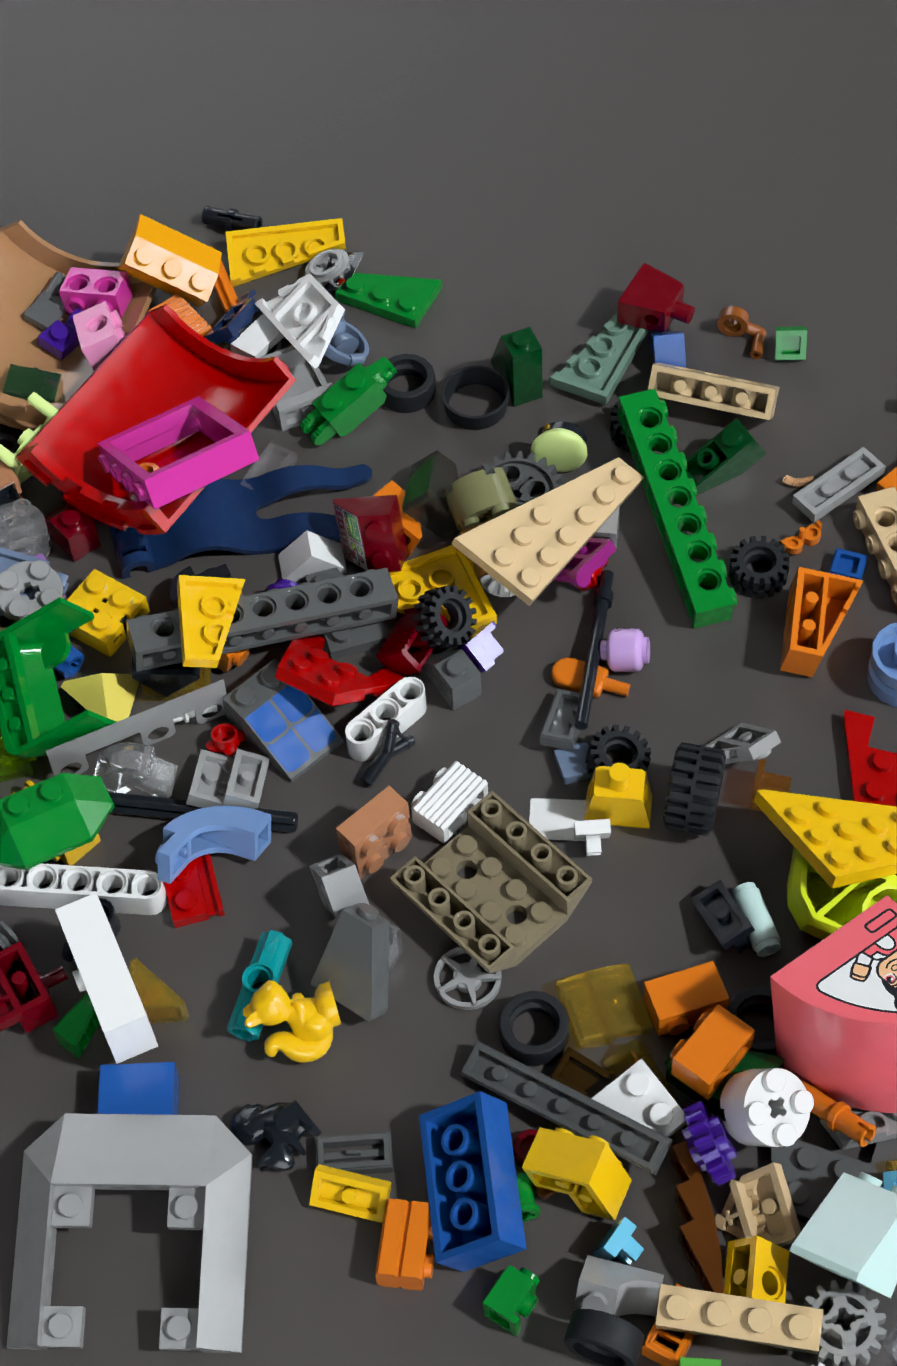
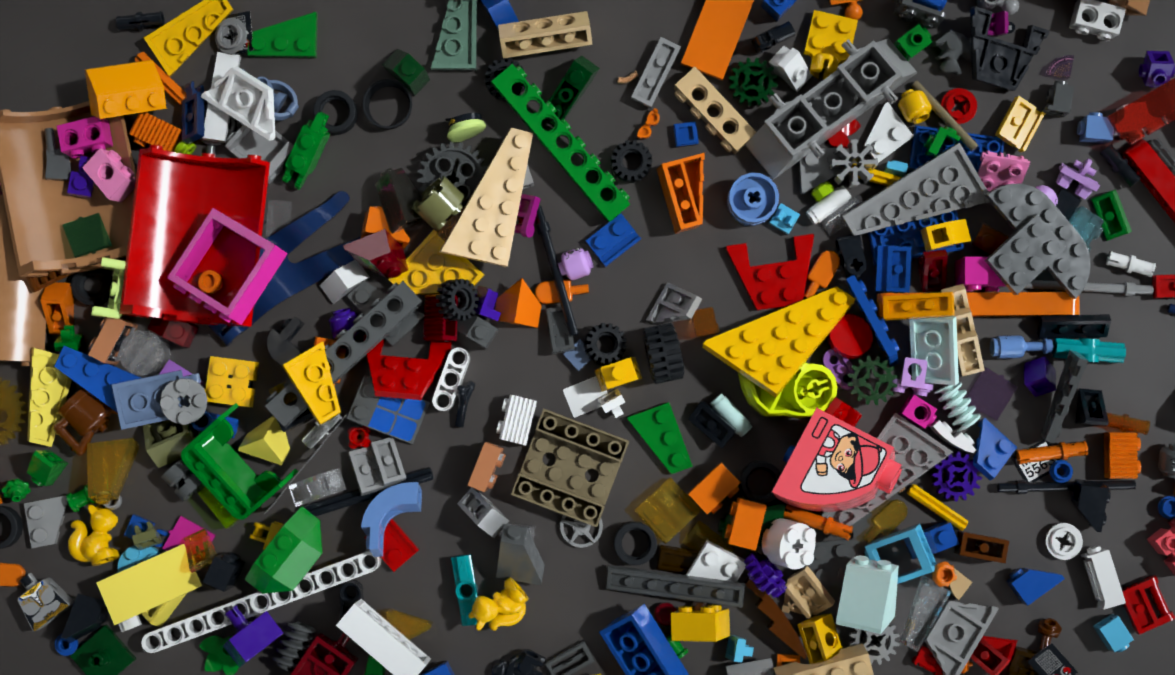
camera: 25 degrees left, 30 degrees up
(523, 672) = (519, 306): none -> orange slope
(644, 910) = (663, 436): none -> green wing
(690, 648) = (613, 240): none -> blue plate

